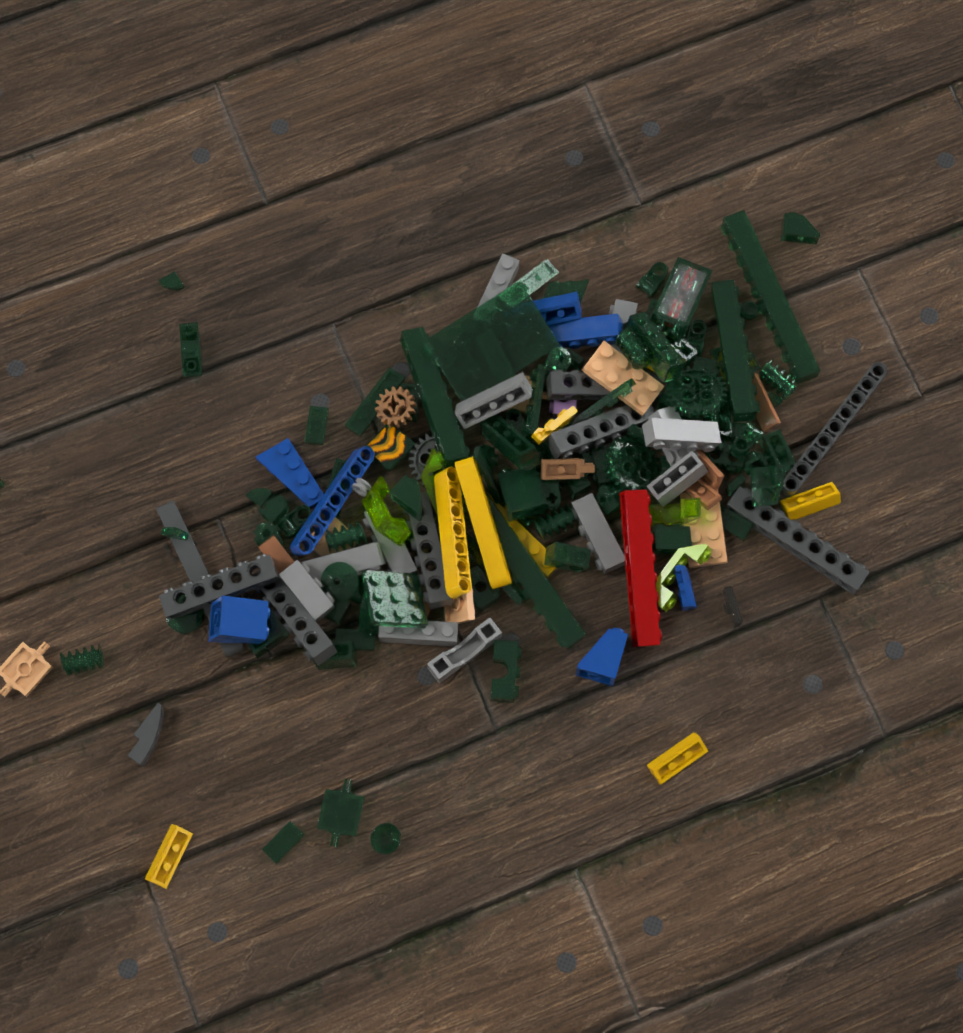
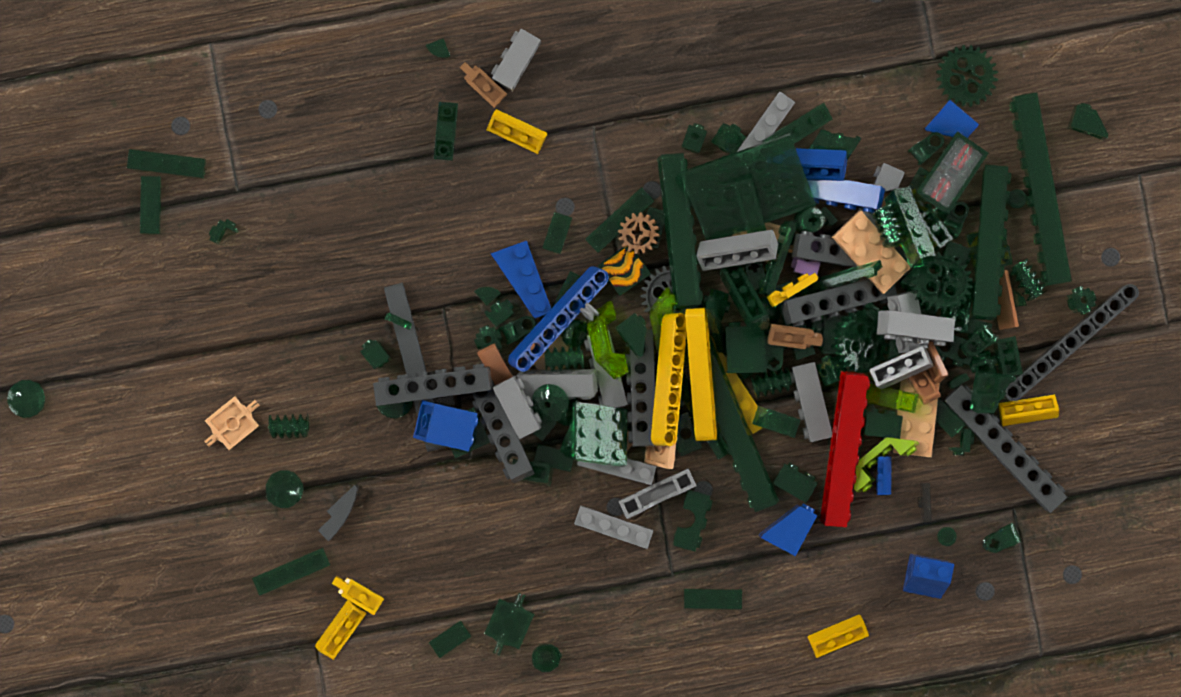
camera: 10 degrees right, 15 degrees up
(87, 724) = (284, 489): none -> clear green dish
(107, 805) = (291, 571): none -> clear green plate
(158, 570) = (375, 353): none -> clear green brick
(181, 815) = (358, 594): none -> yellow hinge
(220, 305) = (483, 84): none -> medium nougat hinge
(247, 276) = (515, 59): none -> light grey brick
(260, 342) = (516, 131): none -> yellow slope
(351, 512) = (575, 333): none -> clear green hair
(426, 691) = (613, 527): none -> light grey arch
(431, 314) = (694, 138): none -> clear green brick
(462, 304) = (728, 138): none -> clear green brick
(542, 746) = (713, 598): none -> clear green plate
(599, 613) = (795, 482): none -> clear green brick
(669, 250) = (951, 120): none -> blue slope
(677, 196) = (973, 59): none -> clear green gear
(752, 675) = (927, 576): none -> blue slope
(757, 540) = (966, 441): none -> clear green bracket
(761, 637) = (946, 536): none -> clear green plate
(818, 626) = (1004, 537): none -> clear green piece
(834, 387) = (1074, 300): none -> clear green brick

